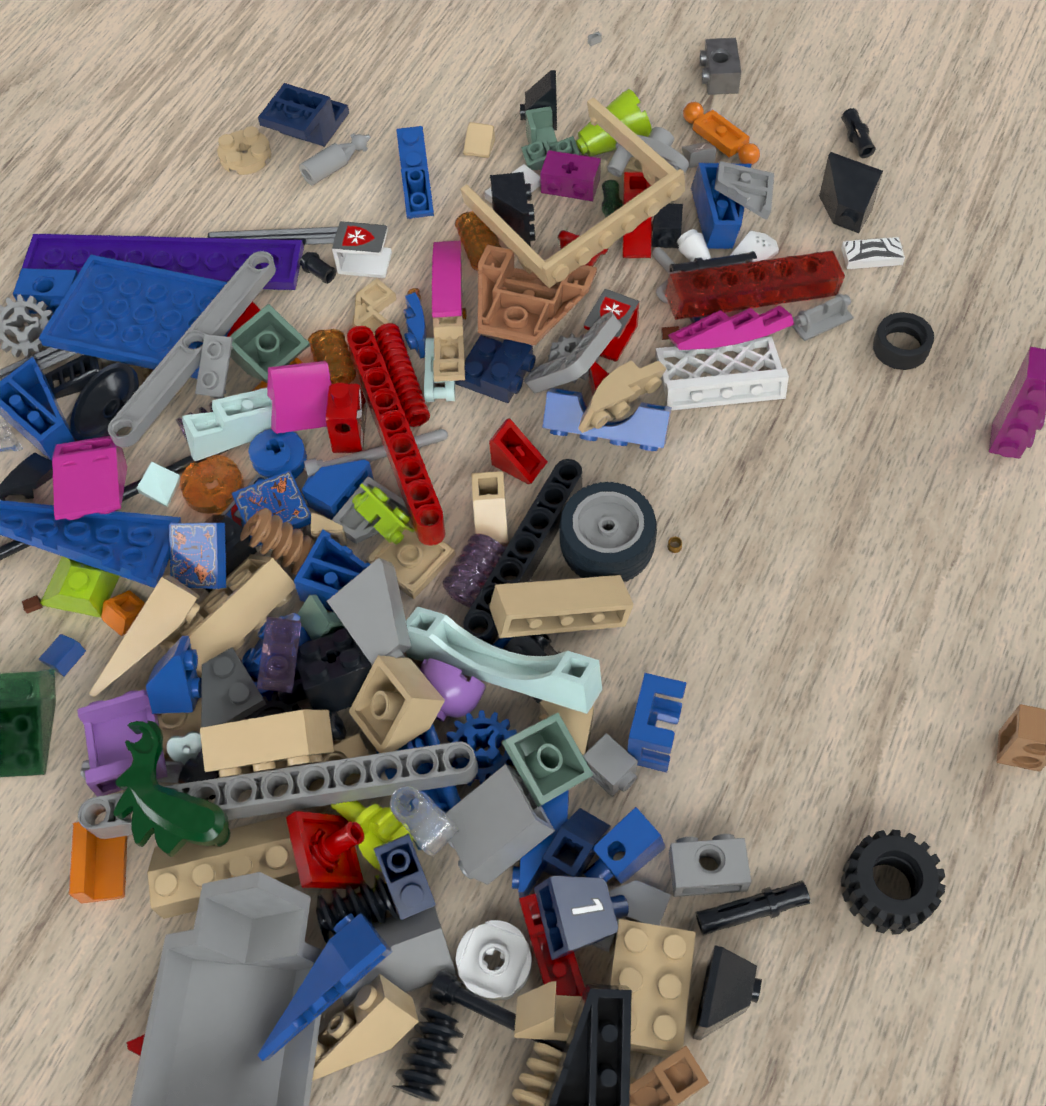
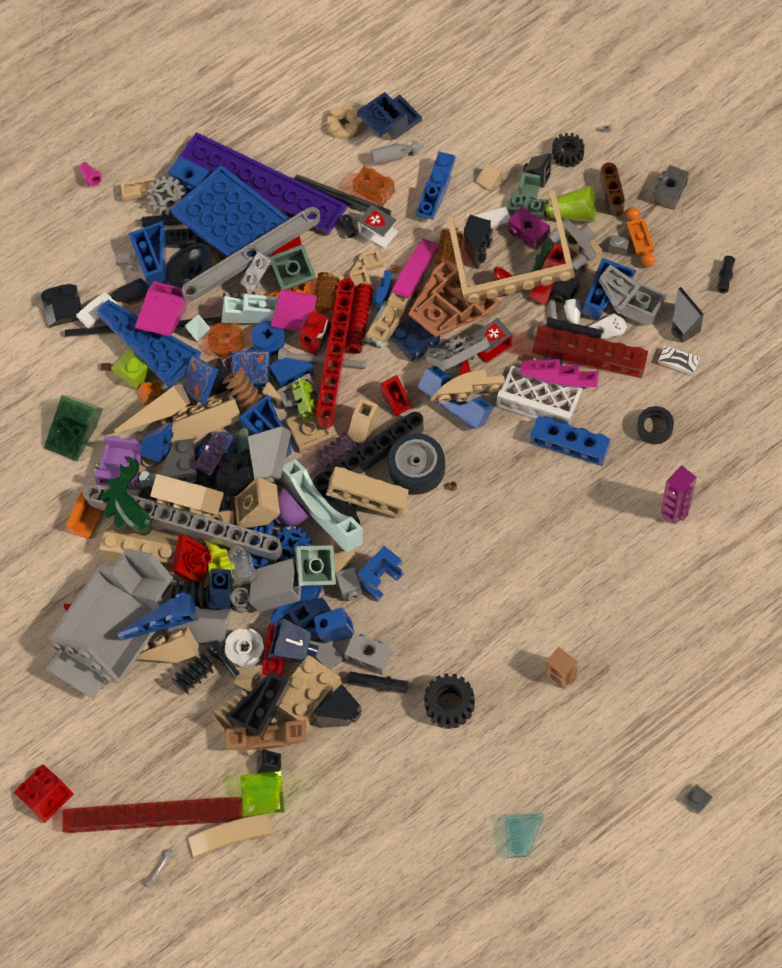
camera: 30 degrees right, 5 degrees up
(62, 654) = (110, 402): blue slope -> none
(326, 204) = (371, 188): none -> clear orange brick
(442, 872) = (239, 596): none -> light grey wheel
(572, 67) = (571, 158): none -> black tyre
(654, 95) = (612, 196): none -> reddish brown beam
(789, 207) = (644, 305): none -> light grey slope
(804, 408) = (559, 443): none -> blue brick
(823, 317) = (619, 389): light grey hinge -> none

